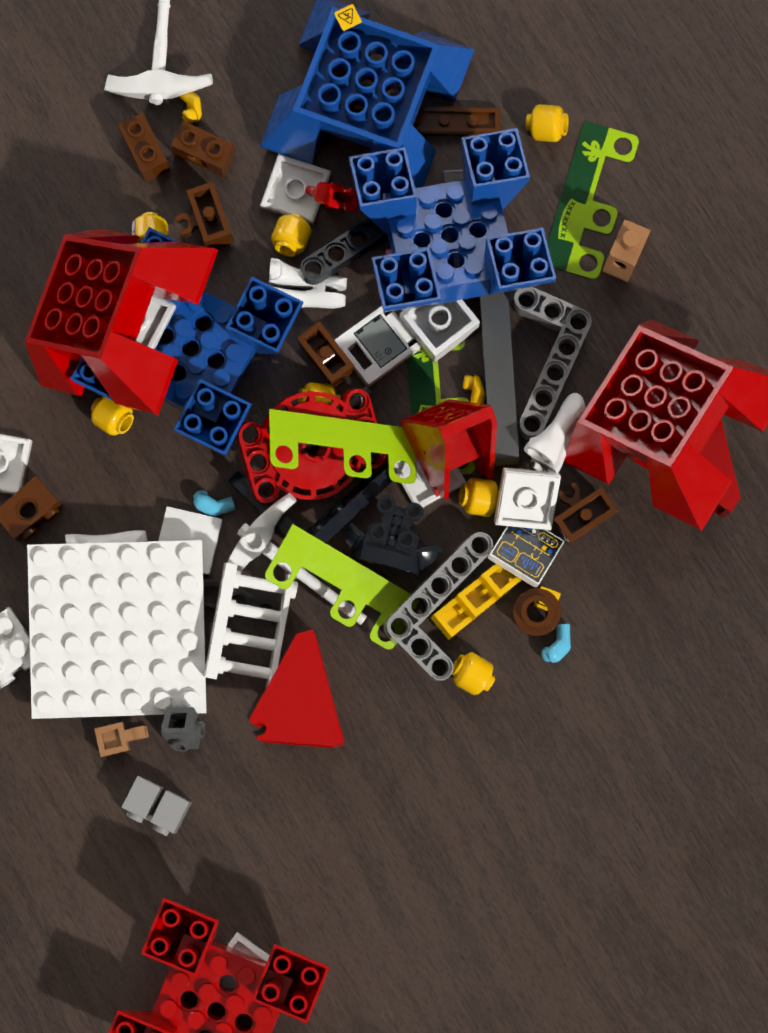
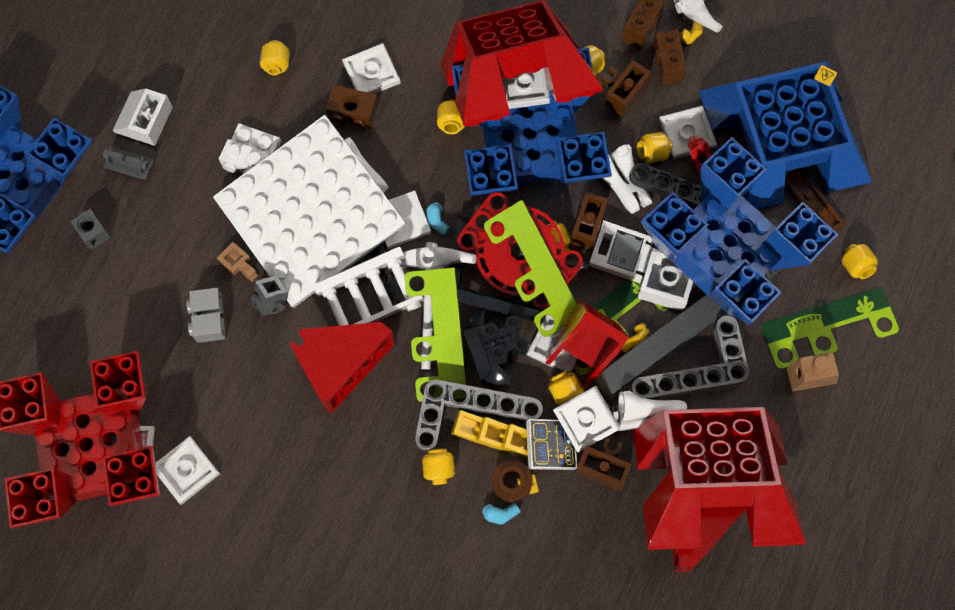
camera: 55 degrees right, 10 degrees down
(306, 925) = (185, 470): none -> white tile

